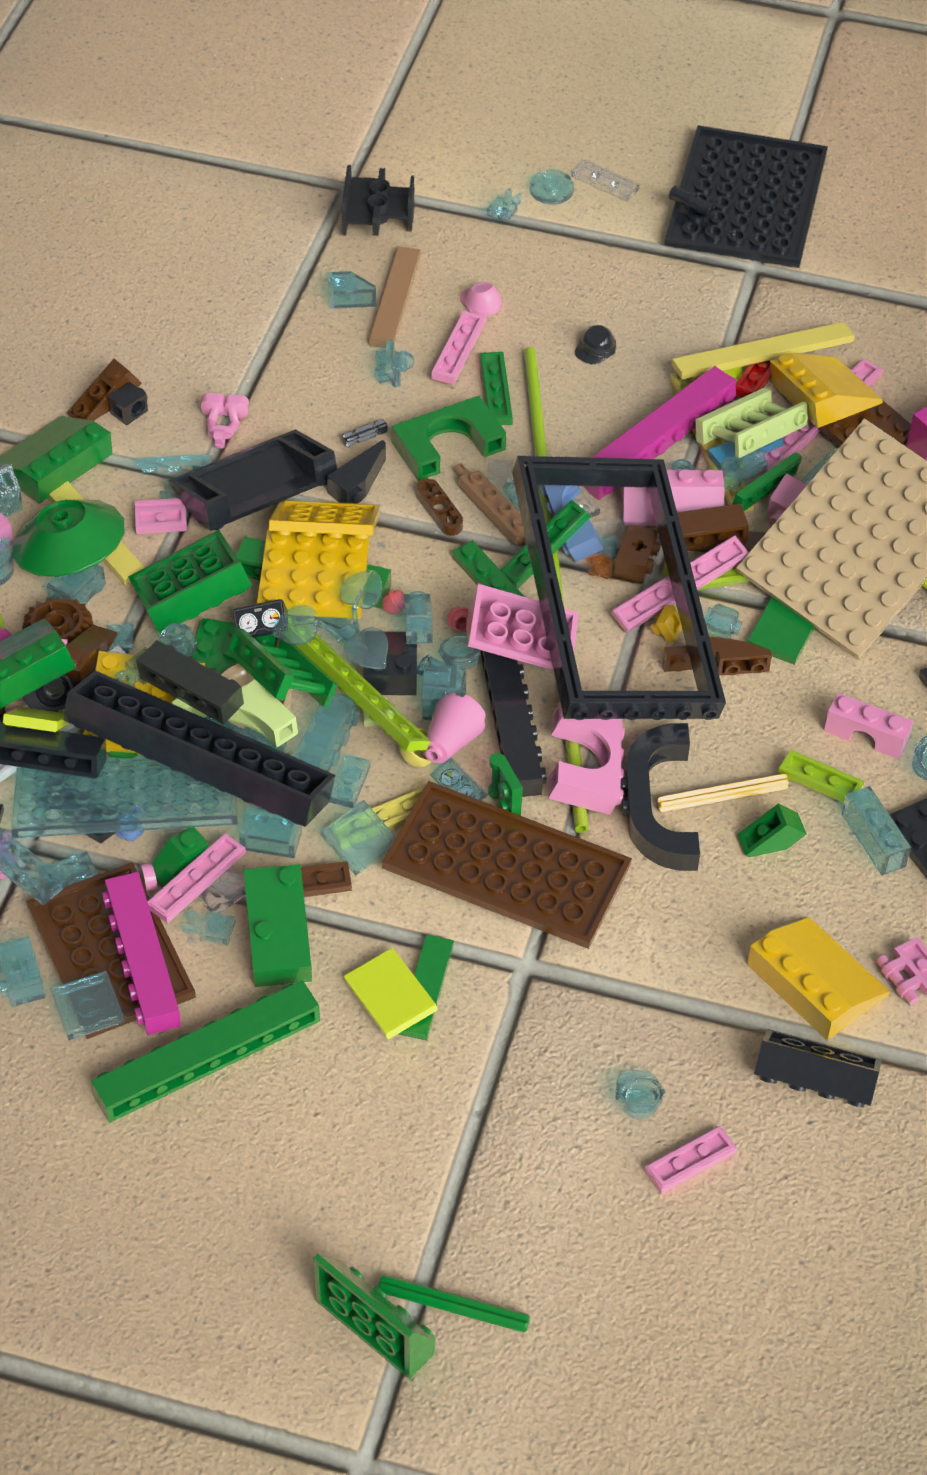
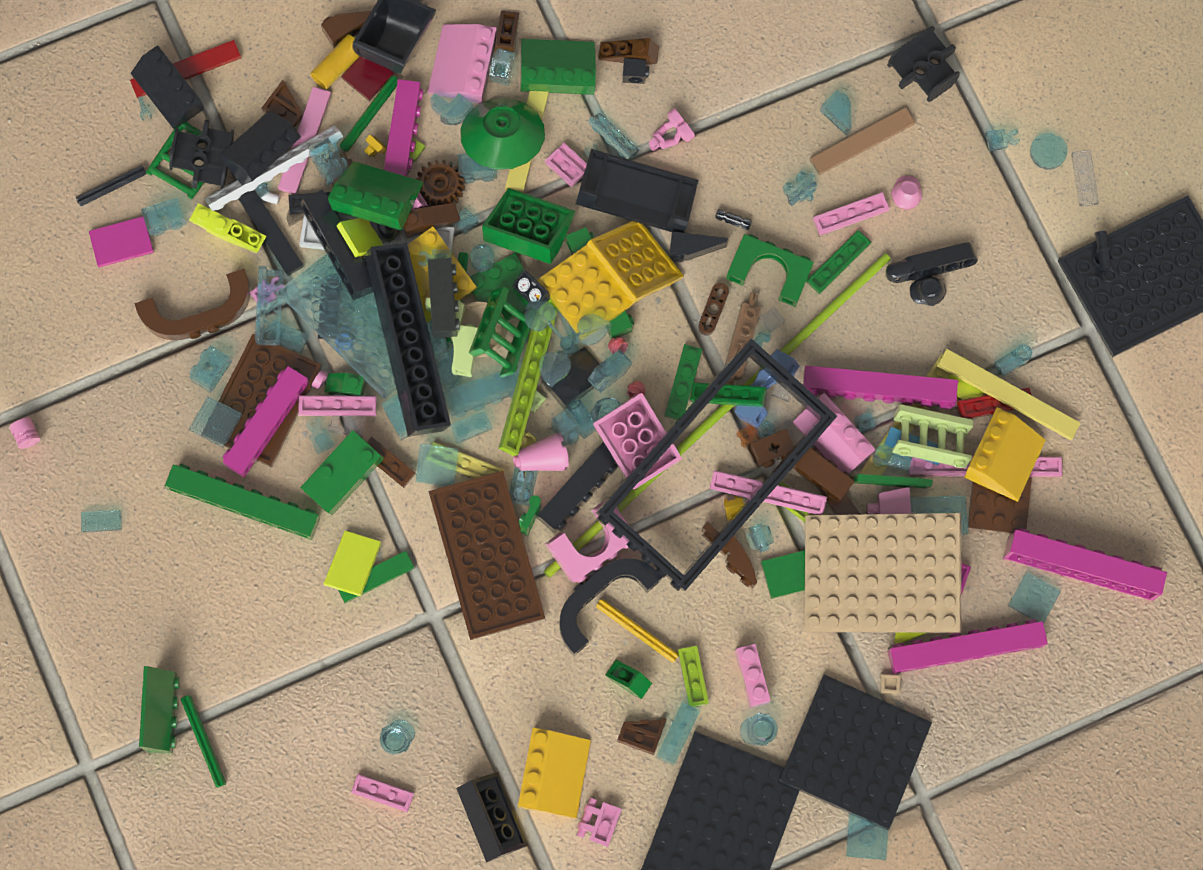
camera: 45 degrees right, 25 degrees up
(74, 1218) = (101, 521): none -> clear light blue tile
(573, 321) = (932, 263): none -> black piece
(732, 325) = (1012, 360): none -> clear light blue piece
(847, 864) = (642, 734): none -> reddish brown wing

